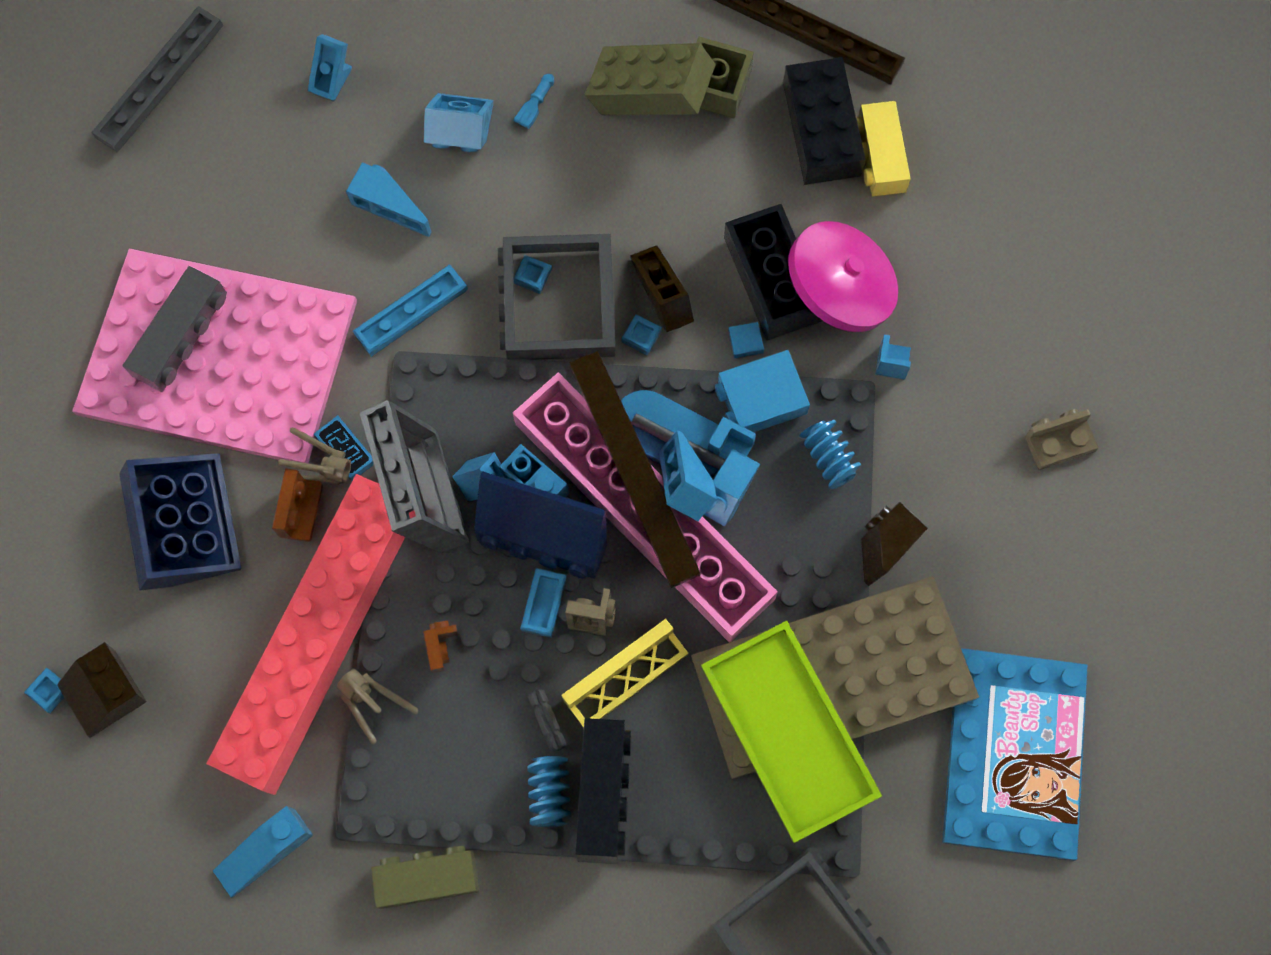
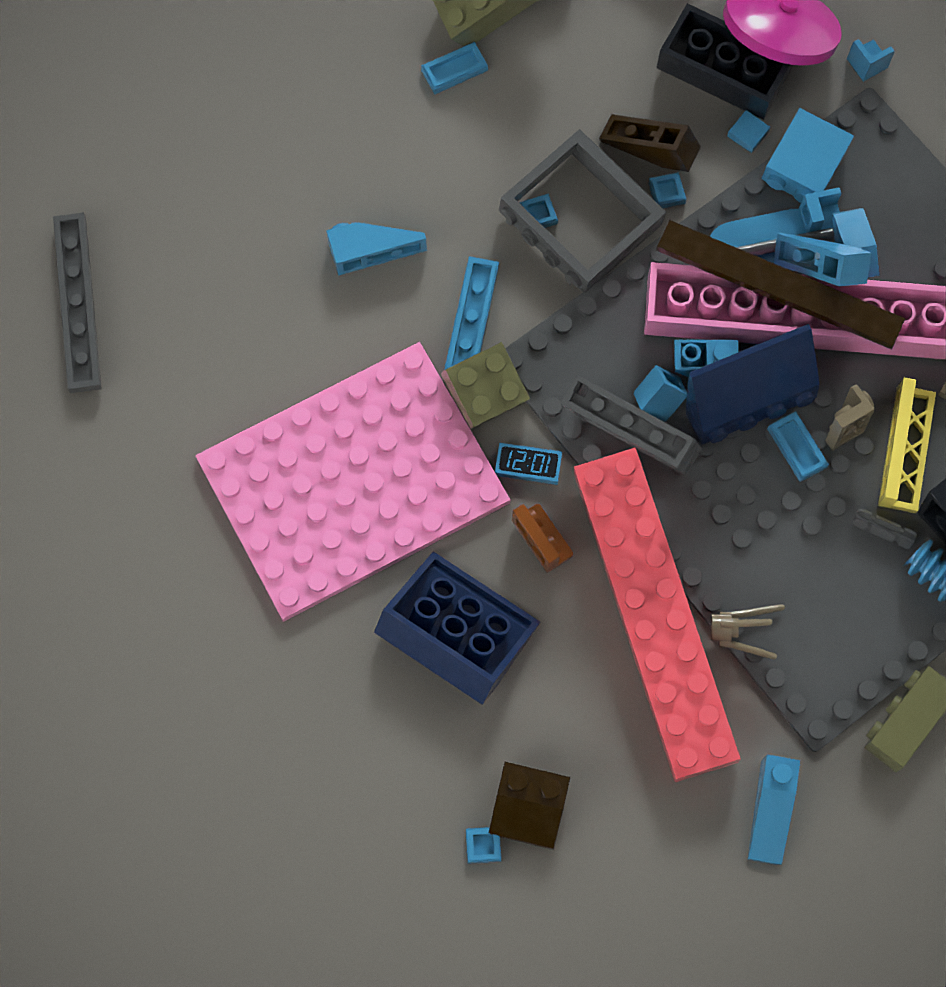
camera: 45 degrees left, 0 degrees up
(175, 329) = (310, 480): dark grey brick -> none
(328, 67) = (216, 179): dark azure slope -> none
(332, 469) = (542, 484): dark tan plant -> none
(361, 364) = (485, 385): none -> olive brick
(437, 650) = (762, 543): dark orange bracket -> none
(457, 122) = (365, 140): dark azure slope -> none
(529, 110) = (409, 87): dark azure piece -> none
(576, 121) = (454, 68): none -> dark azure tile
(830, 453) = (898, 160): dark azure piece -> none

